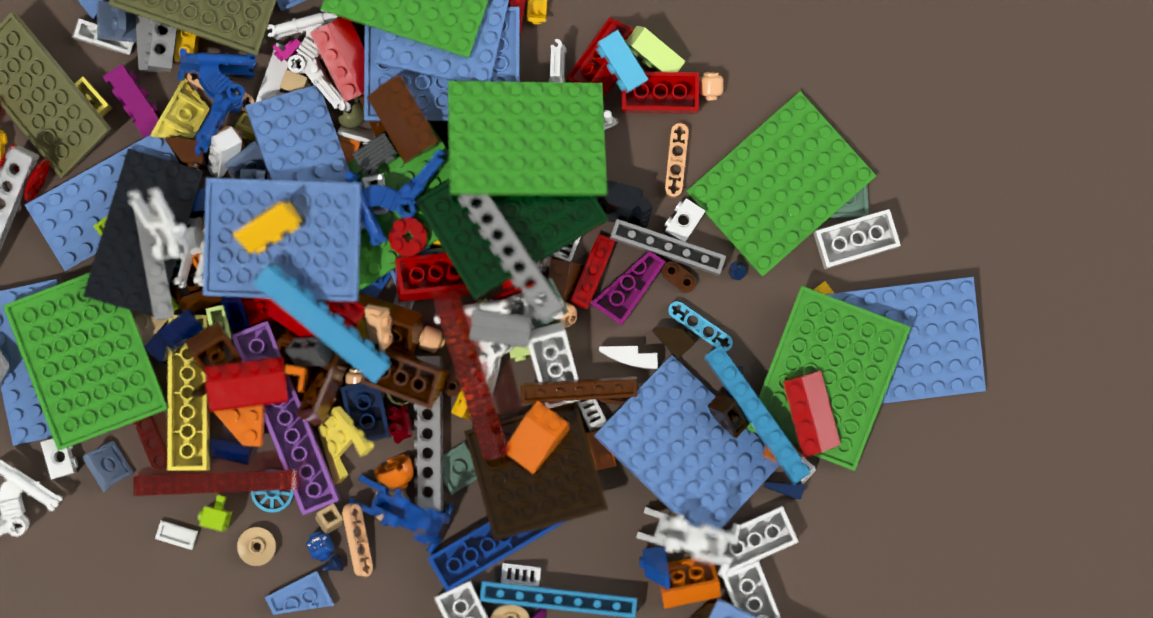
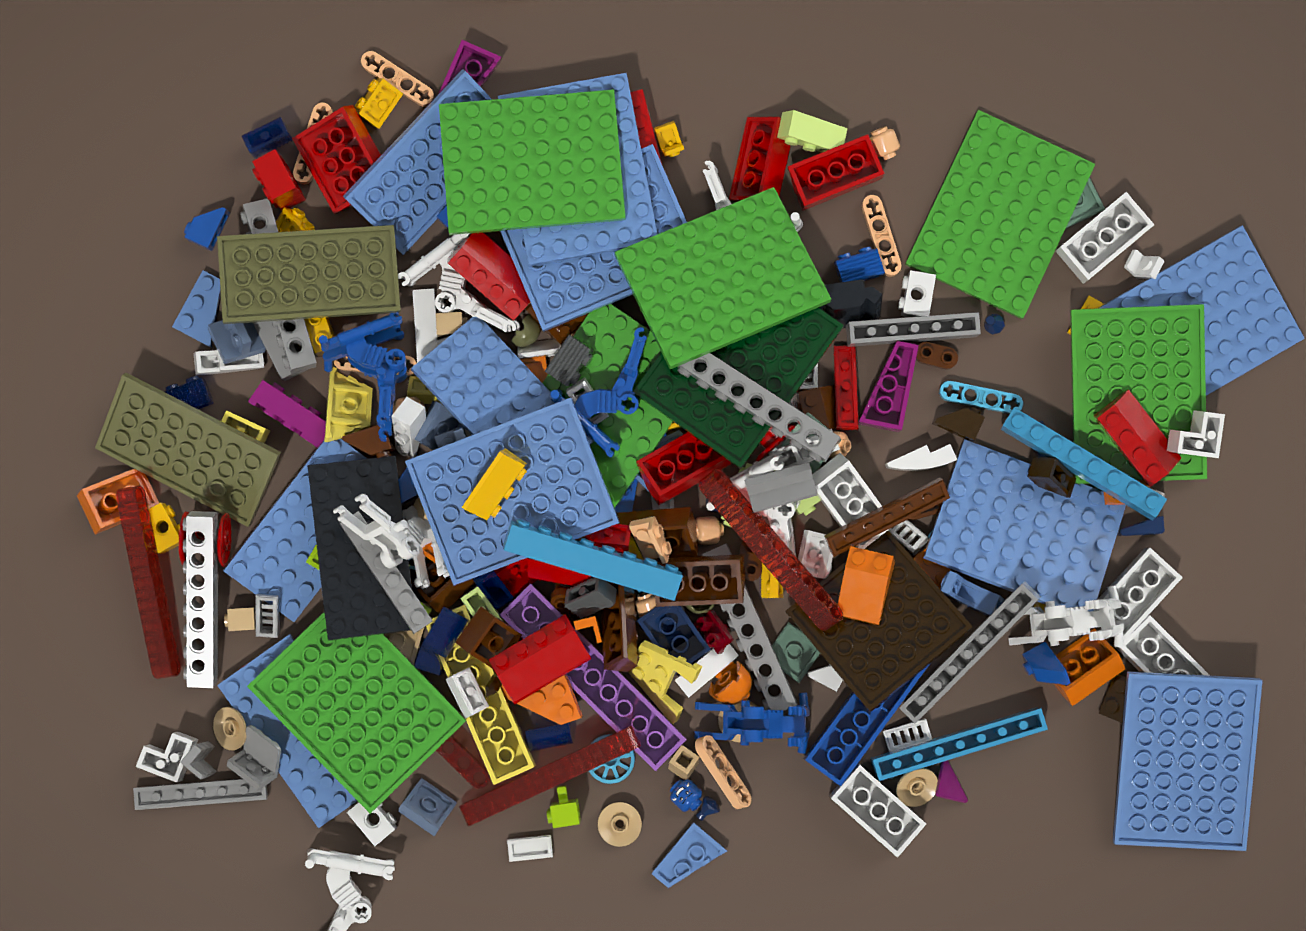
camera: 20 degrees left, 0 degrees up
(24, 250) = (240, 619): none -> tan brick
(38, 268) = (267, 631): none -> light grey slope
(64, 51) = (193, 393): none -> clear blue brick
(178, 387) = (467, 692): none -> white slope
(290, 50) = (431, 290): dark pink bracket -> none
(381, 451) = (711, 665): none -> white slope
(402, 119) = (584, 312): reddish brown slope -> none
(415, 245) = (630, 426): red plate -> none
(474, 498) = (826, 676): none -> white slope
(508, 396) = (815, 554): none -> white bracket
(598, 528) = (970, 652): none -> light grey brick
(621, 62) = (784, 156): medium azure brick -> none
(621, 483) = (970, 594): none -> medium blue arch
(647, 178) = (862, 266): none -> blue brick
(860, 437) = (1203, 437): none -> white brick
(878, 275) = (1143, 266): none -> white bracket

